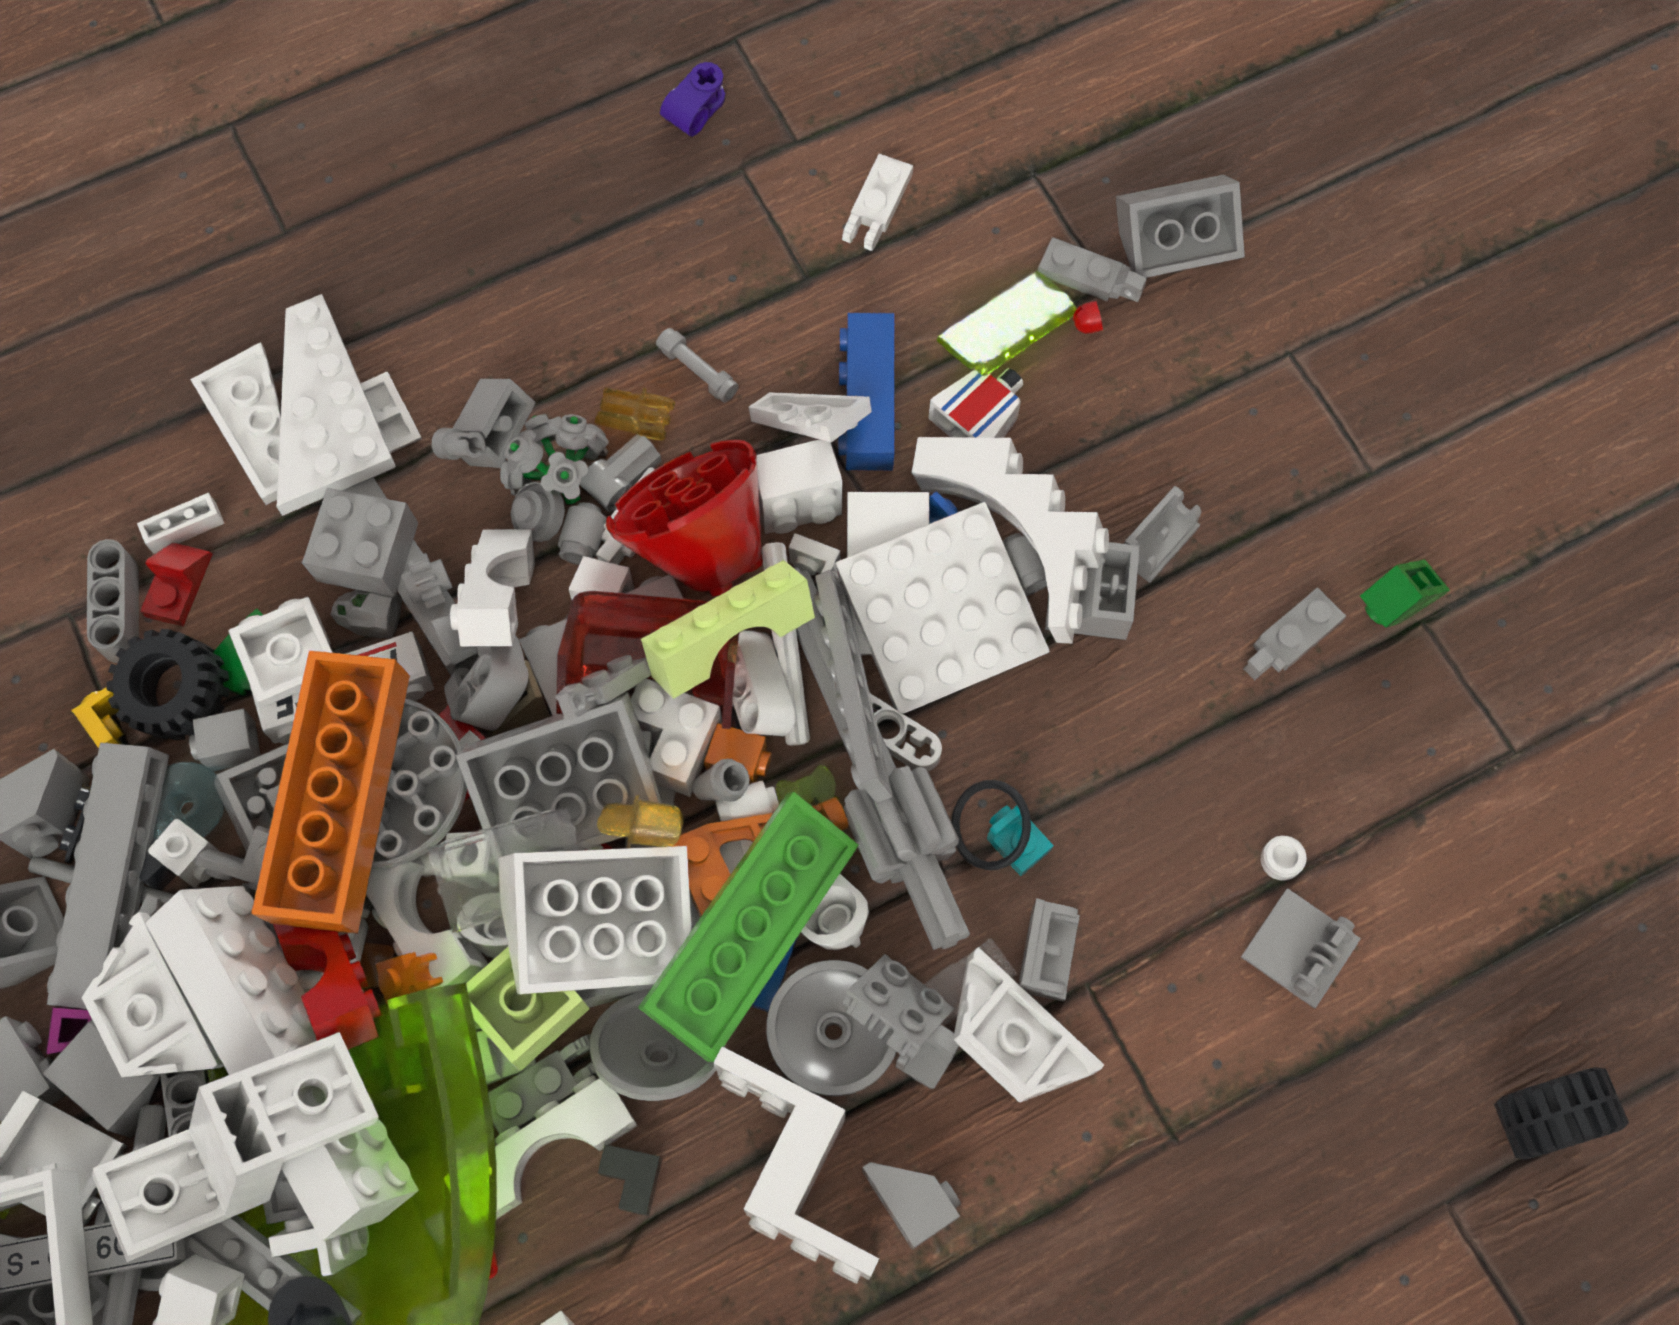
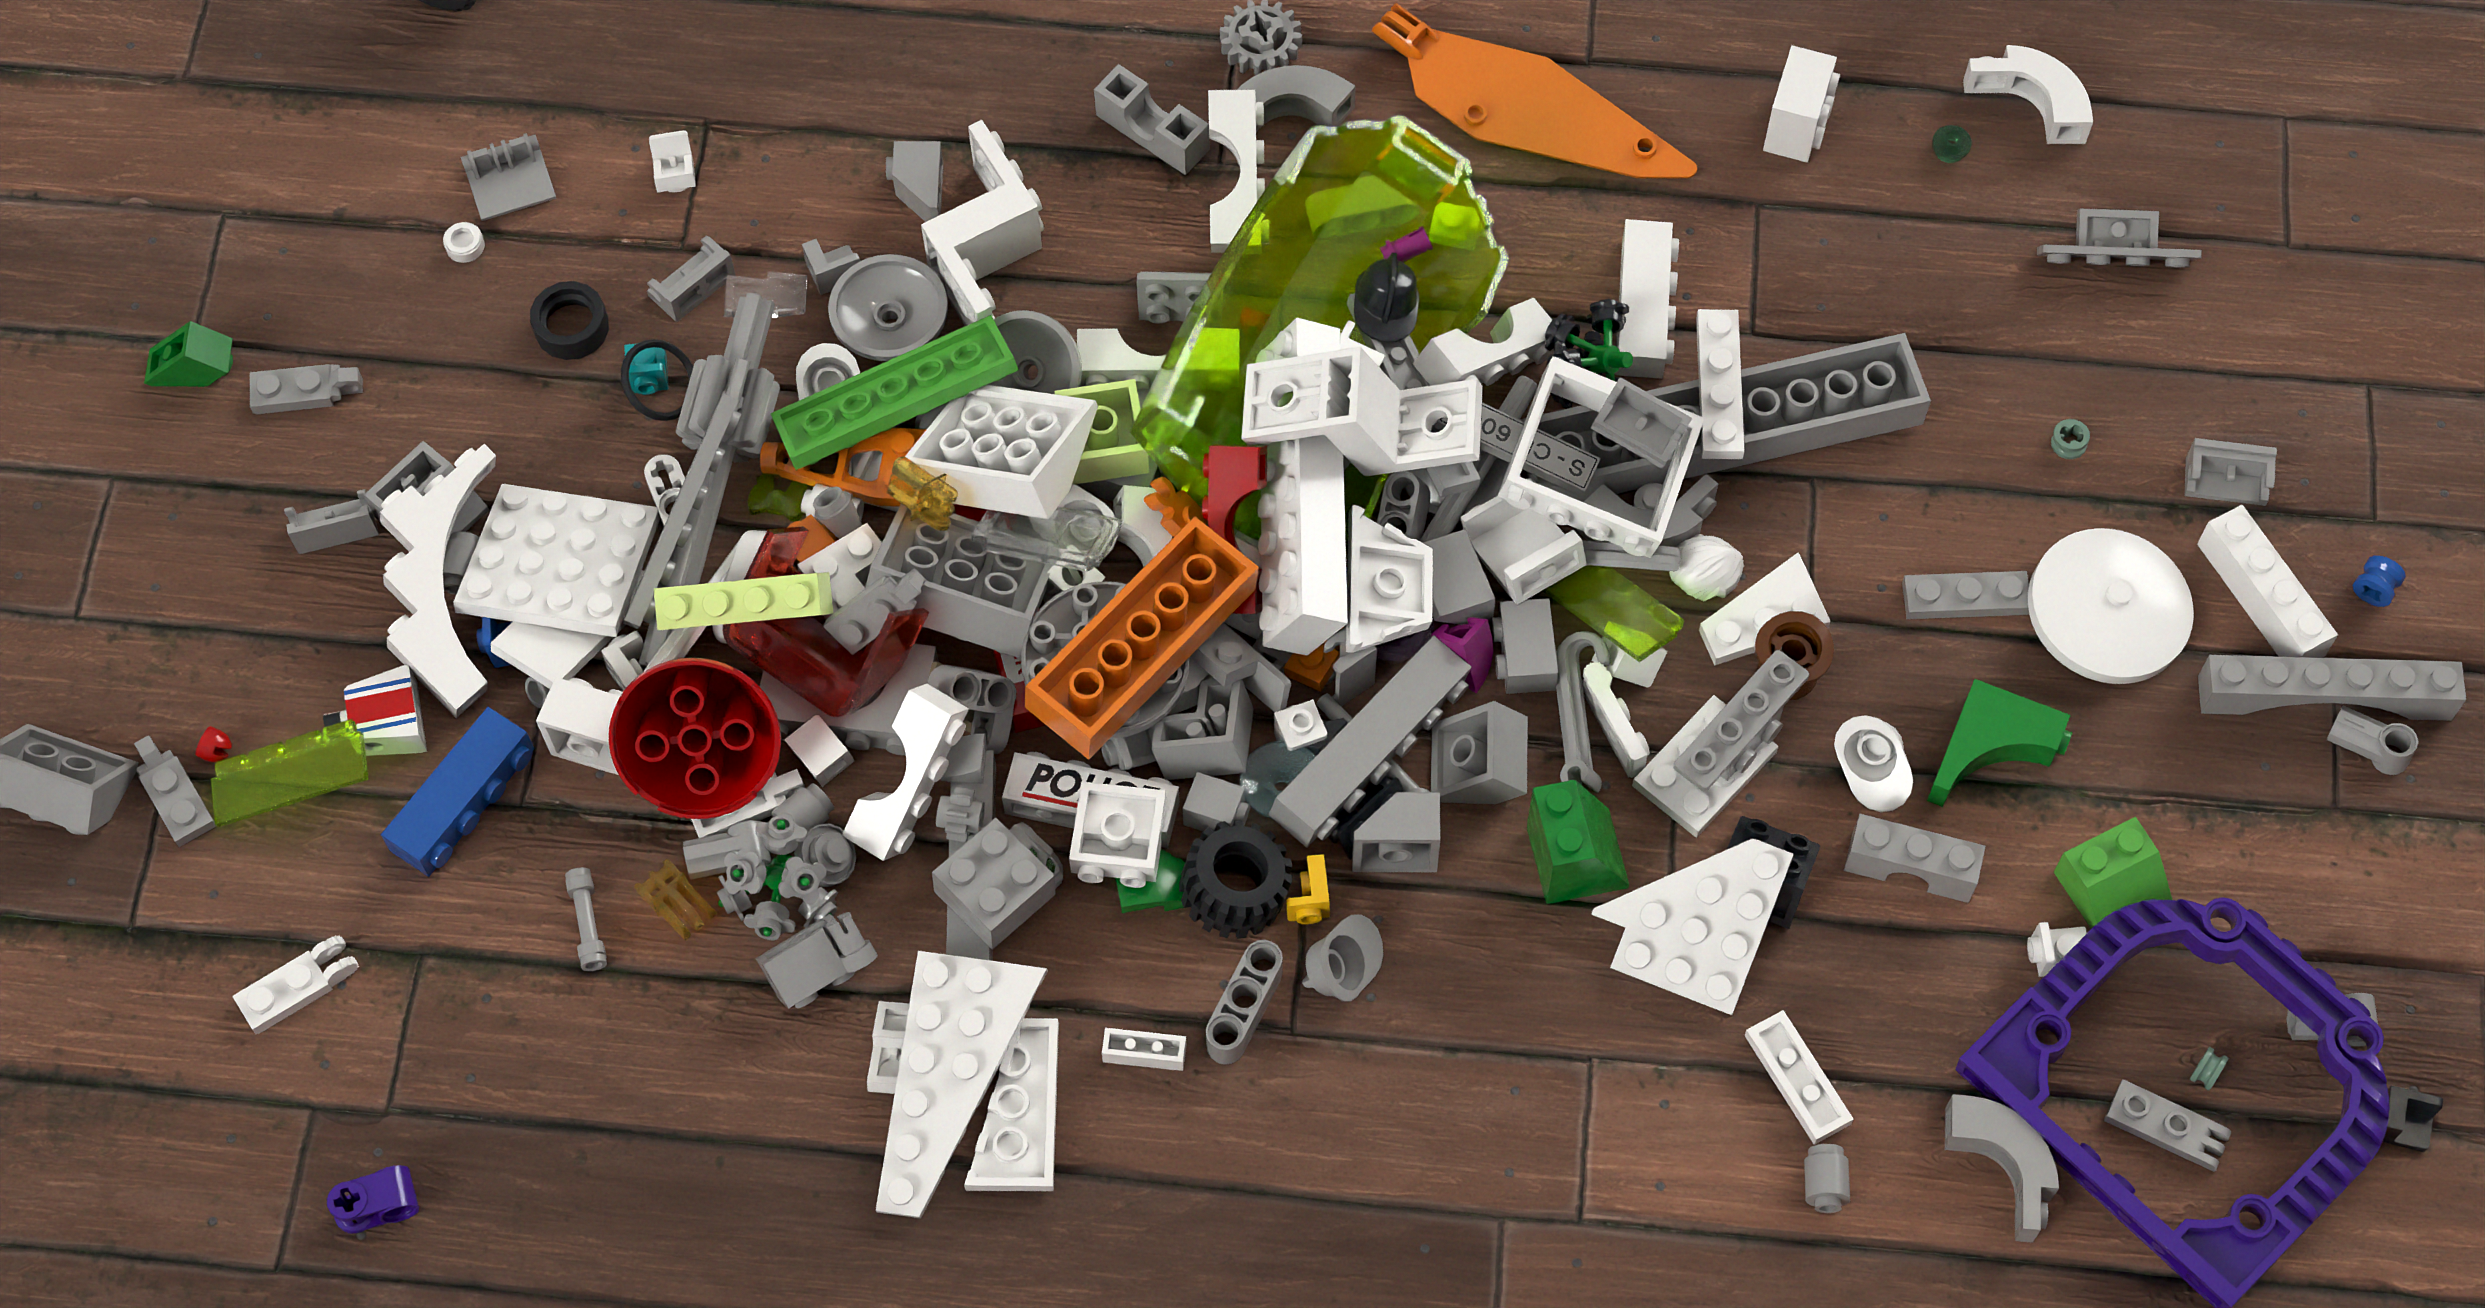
camera: 145 degrees left, 5 degrees down
(45, 677) = (1345, 959): none -> light grey piece
(176, 582) = (1179, 995): red slope -> none
(566, 1239) = (1168, 294): none -> light grey bracket
(639, 1173) = (1102, 307): pearl dark grey piece -> none
(810, 414) = (531, 777): white wing -> none
(898, 1002) = (830, 287): light grey hinge -> none
(1015, 1034) = (762, 230): white wing -> none
(1135, 809) = (563, 295): none -> black tyre
(1159, 1056) = (672, 161): none -> white bracket

